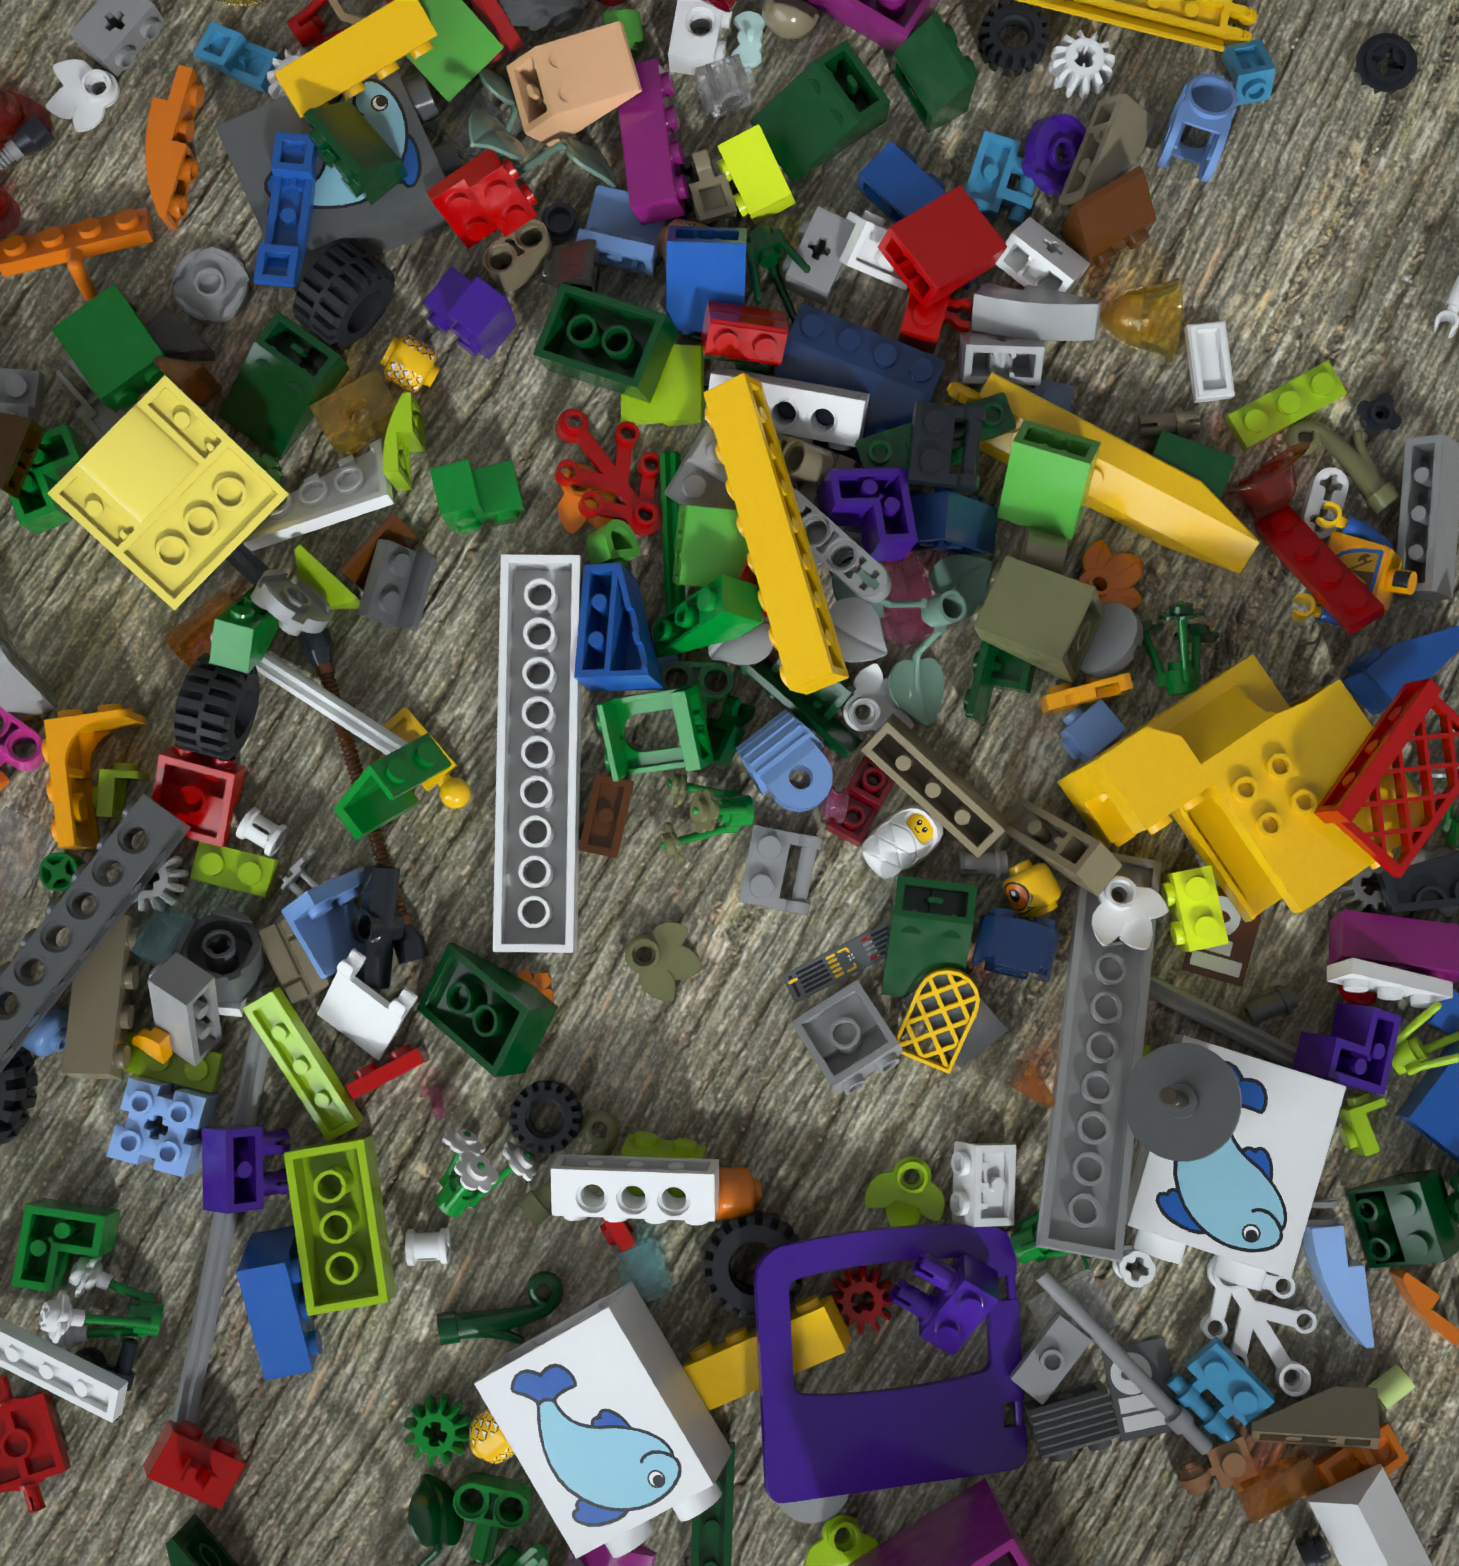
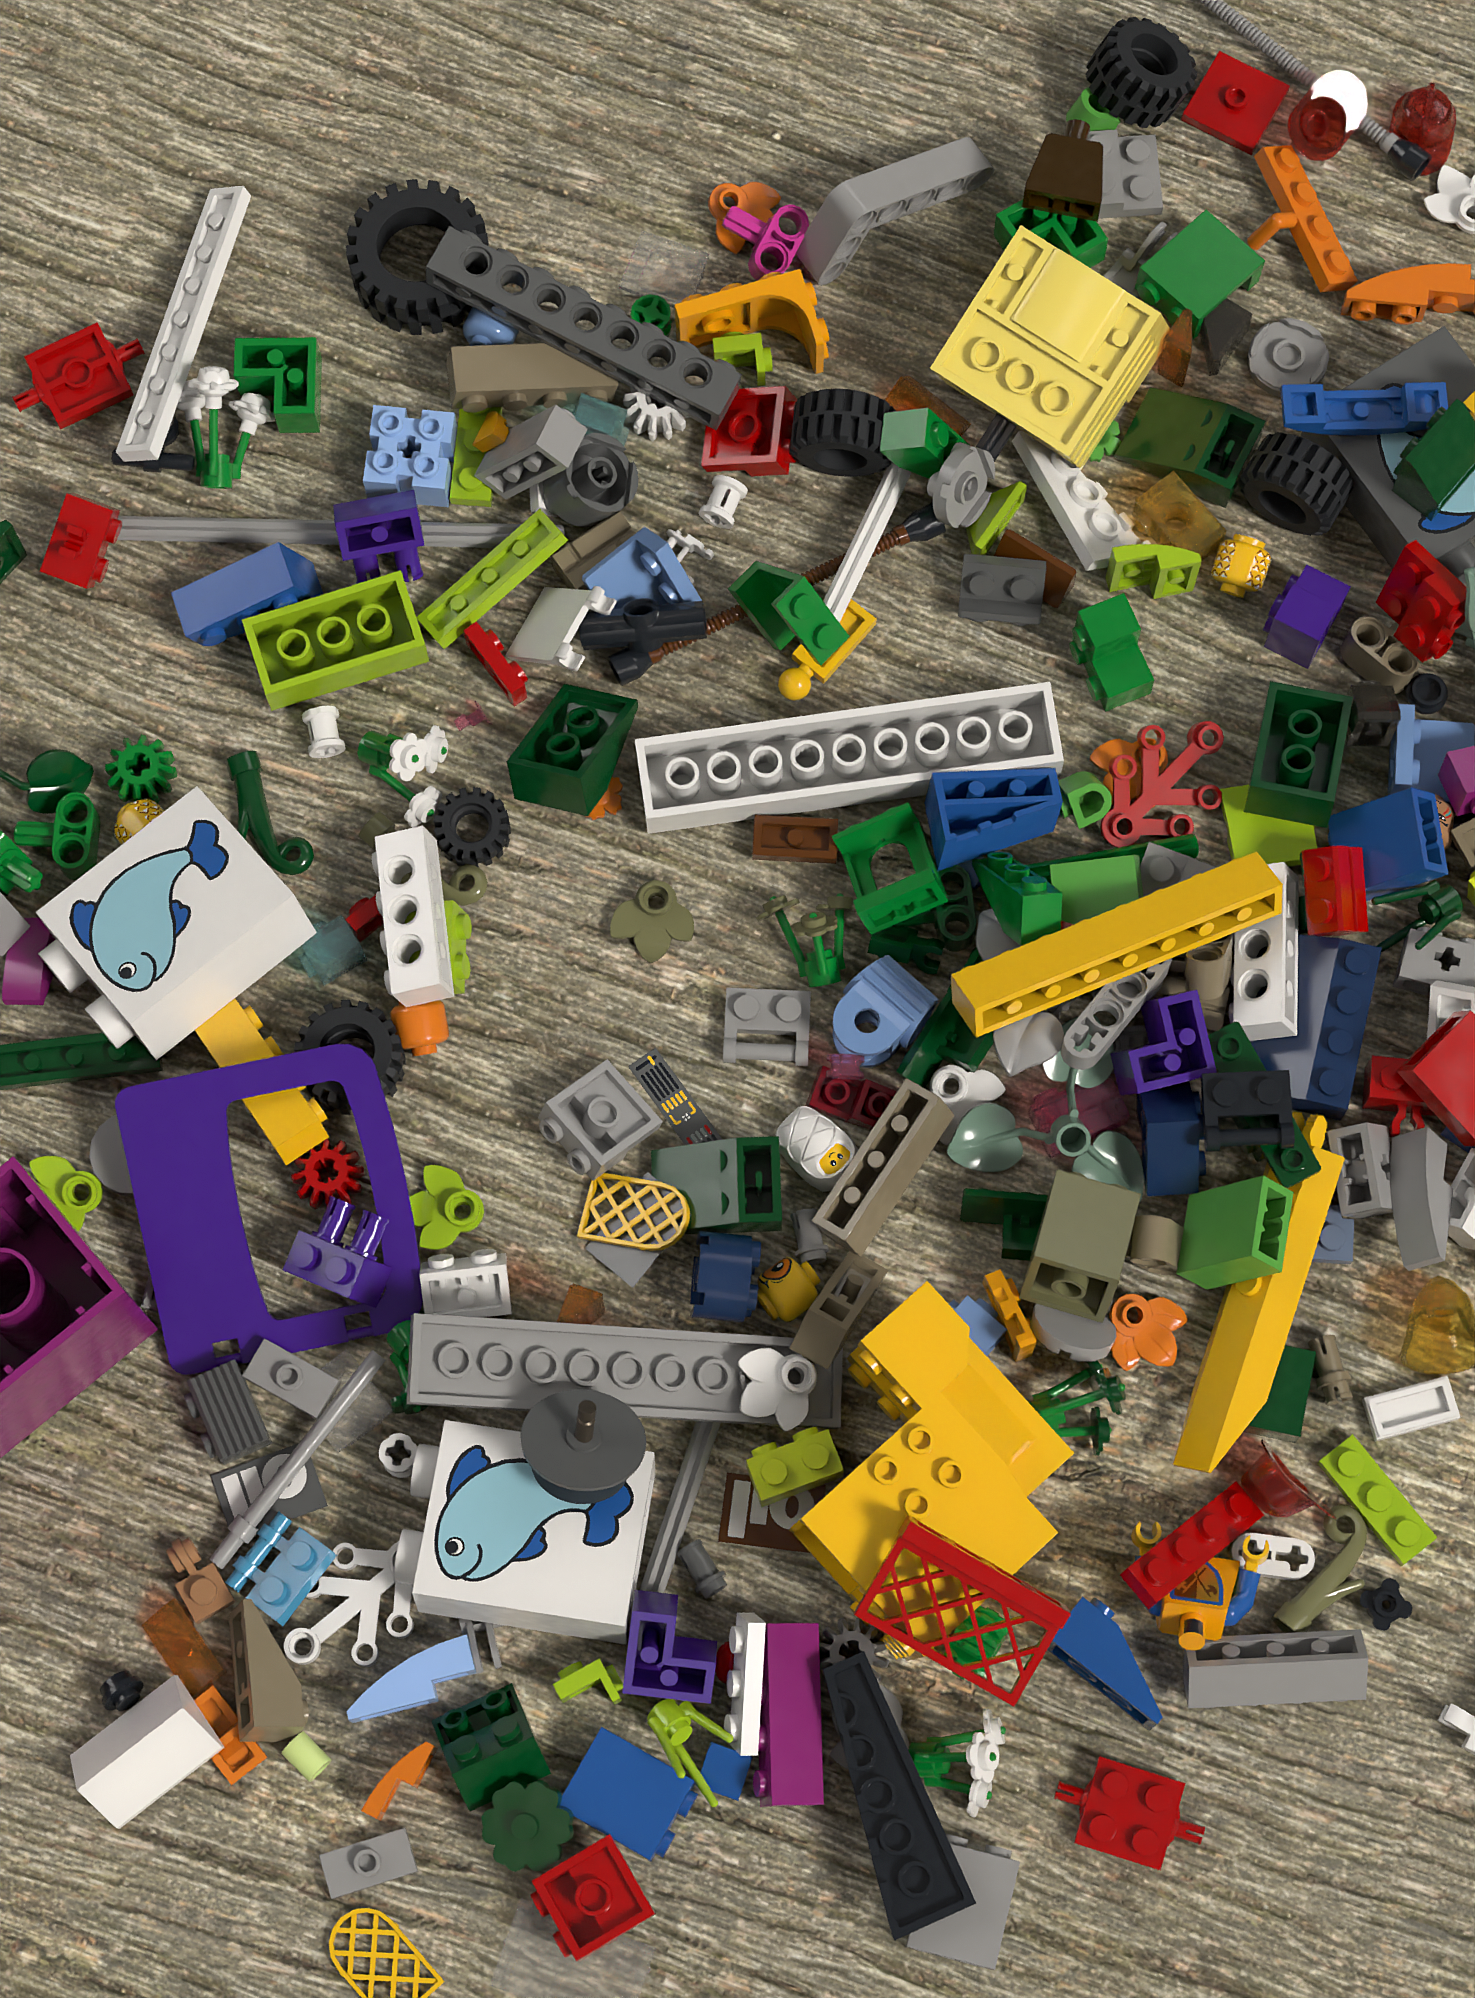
camera: 80 degrees right, 10 degrees down
(234, 869) = (680, 482): lime plate -> none

